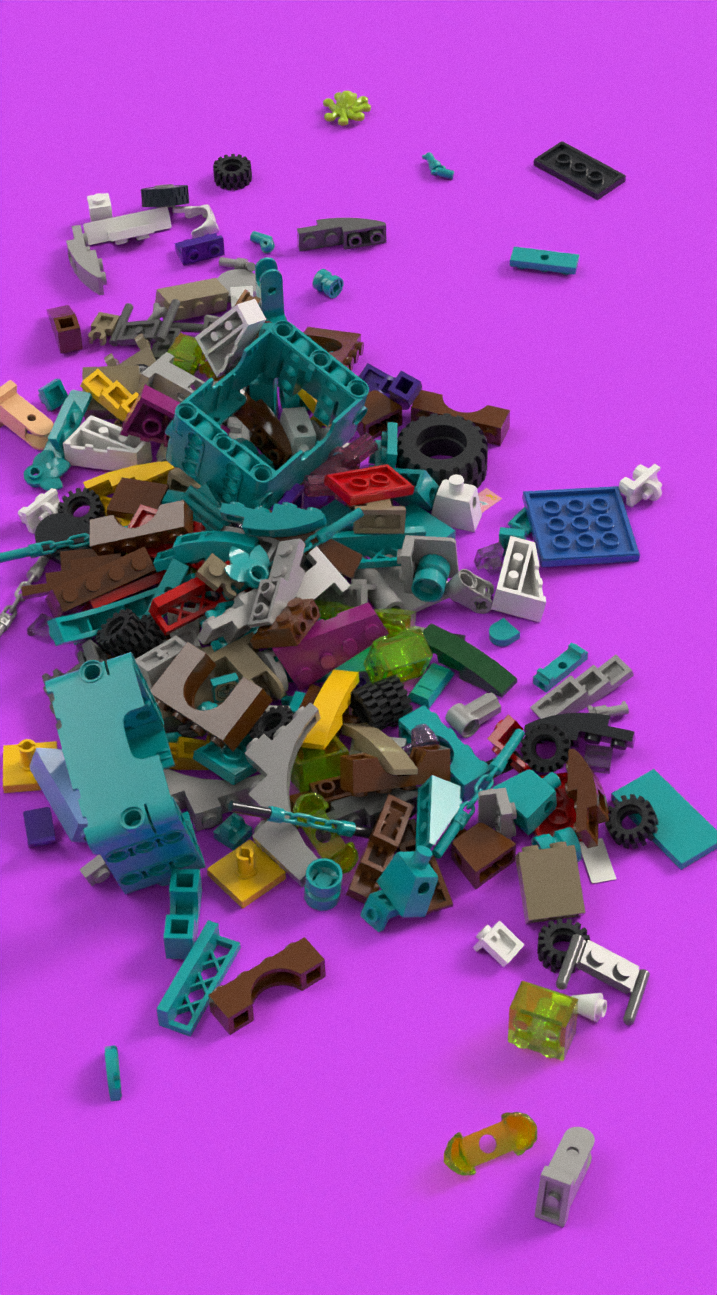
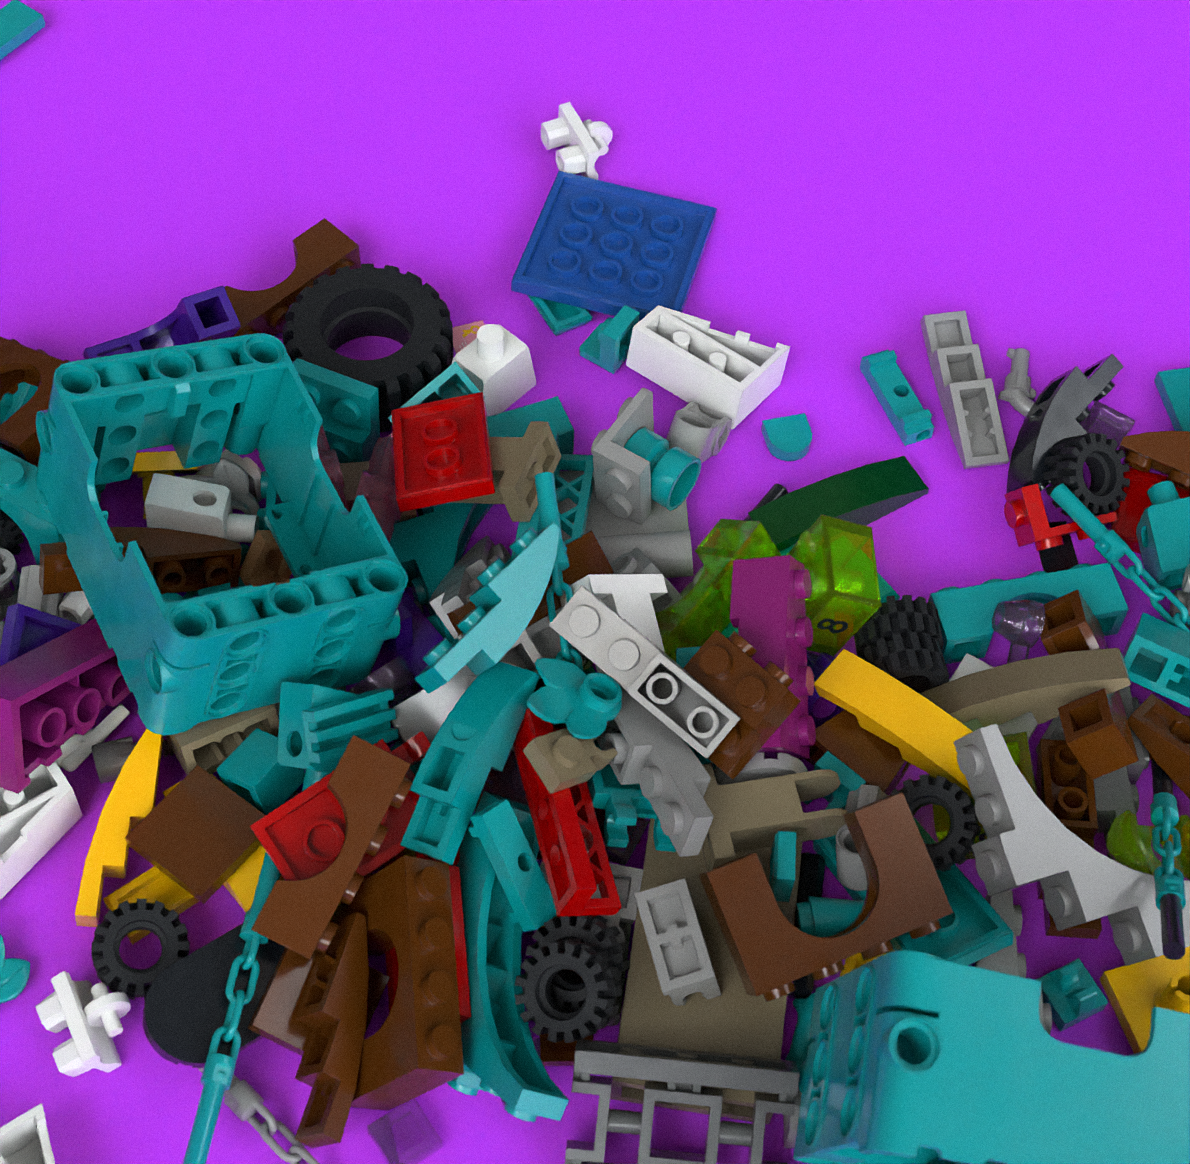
camera: 70 degrees left, 10 degrees up
(468, 718) = (957, 550): light grey piece -> none
(489, 558) = (626, 379): clear purple tile -> none

